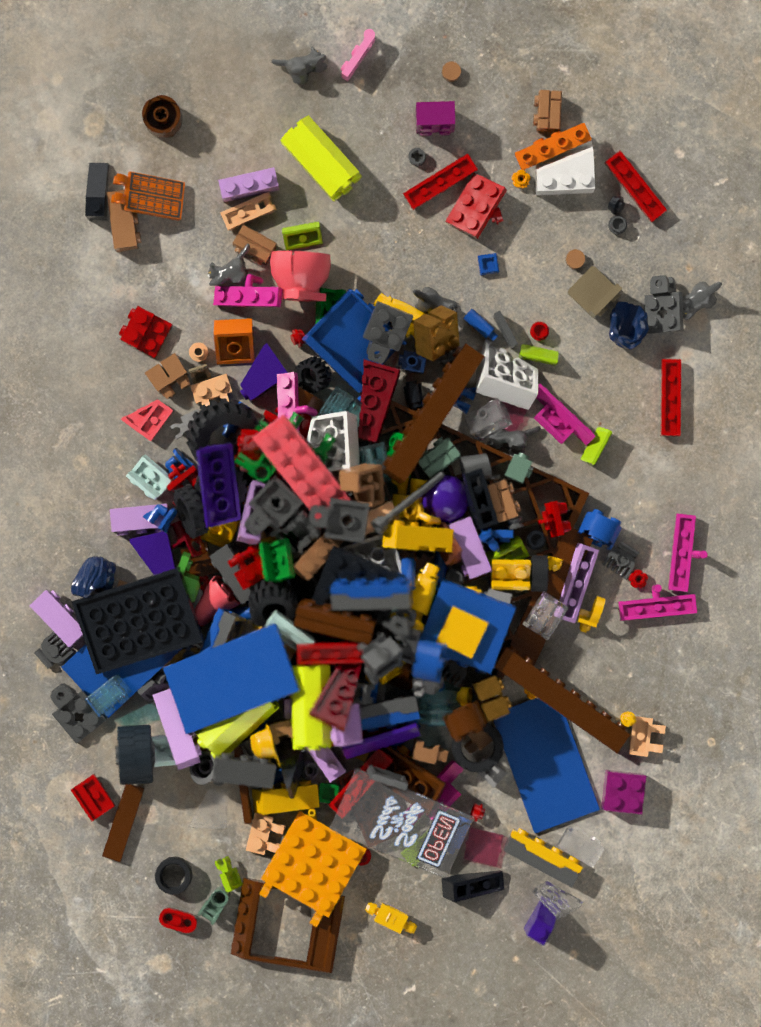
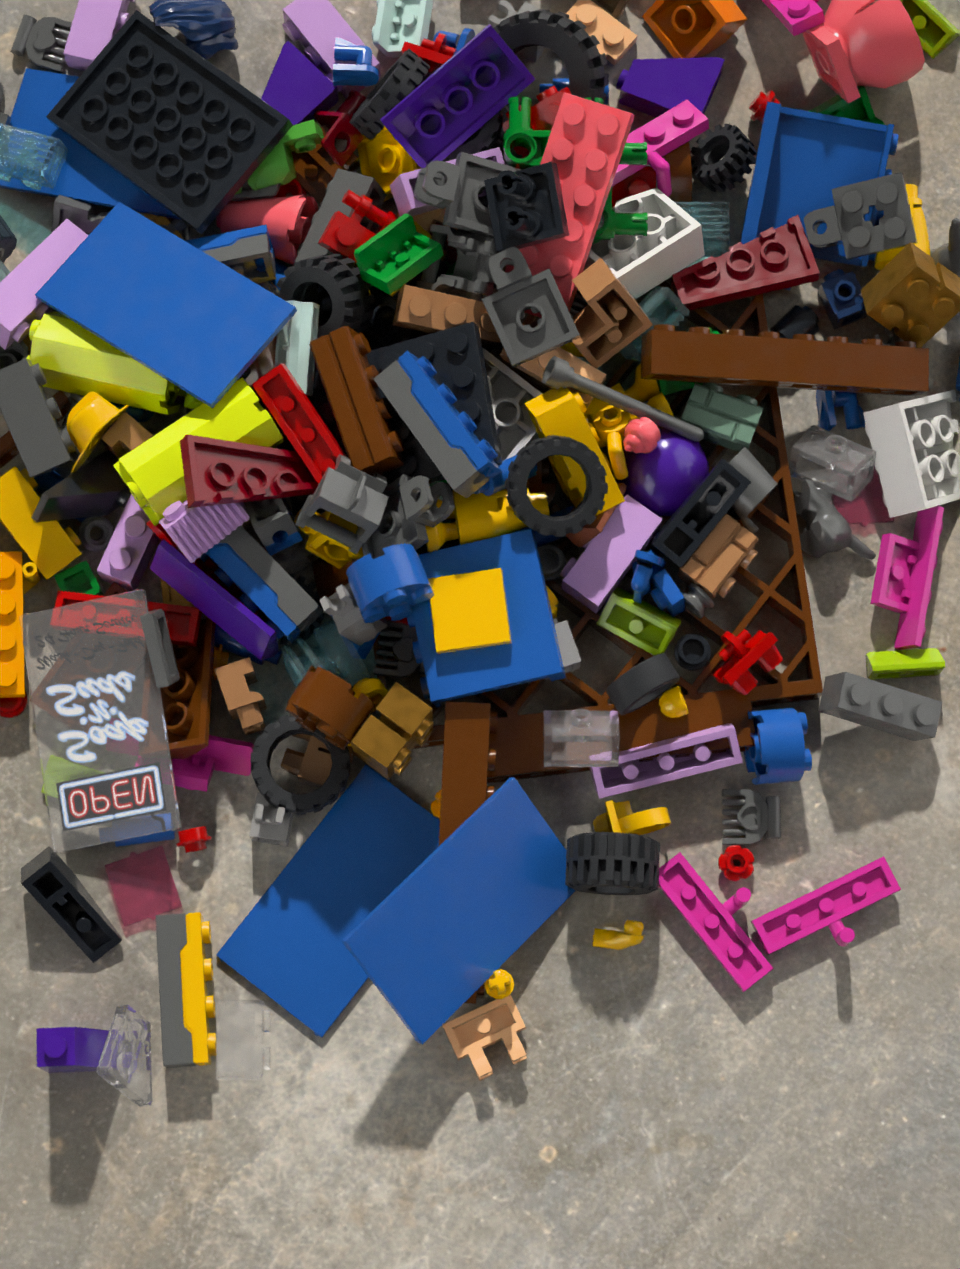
camera: 55 degrees right, 10 degrees down
(295, 490) = (526, 207): none -> black plate
(429, 503) = (641, 436): none -> coral plate
(449, 558) = (587, 508): none -> black tyre
(510, 574) = (610, 641): yellow bracket -> none
(519, 468) = (788, 552): sand green brick -> none
(589, 714) = (463, 911): none -> blue piece
(608, 636) = (612, 863): none -> black tyre
(611, 472) = (880, 706): none -> dark grey brick
(623, 792) = (374, 1054): magenta brick -> none
(639, 652) = (618, 939): none -> yellow arm

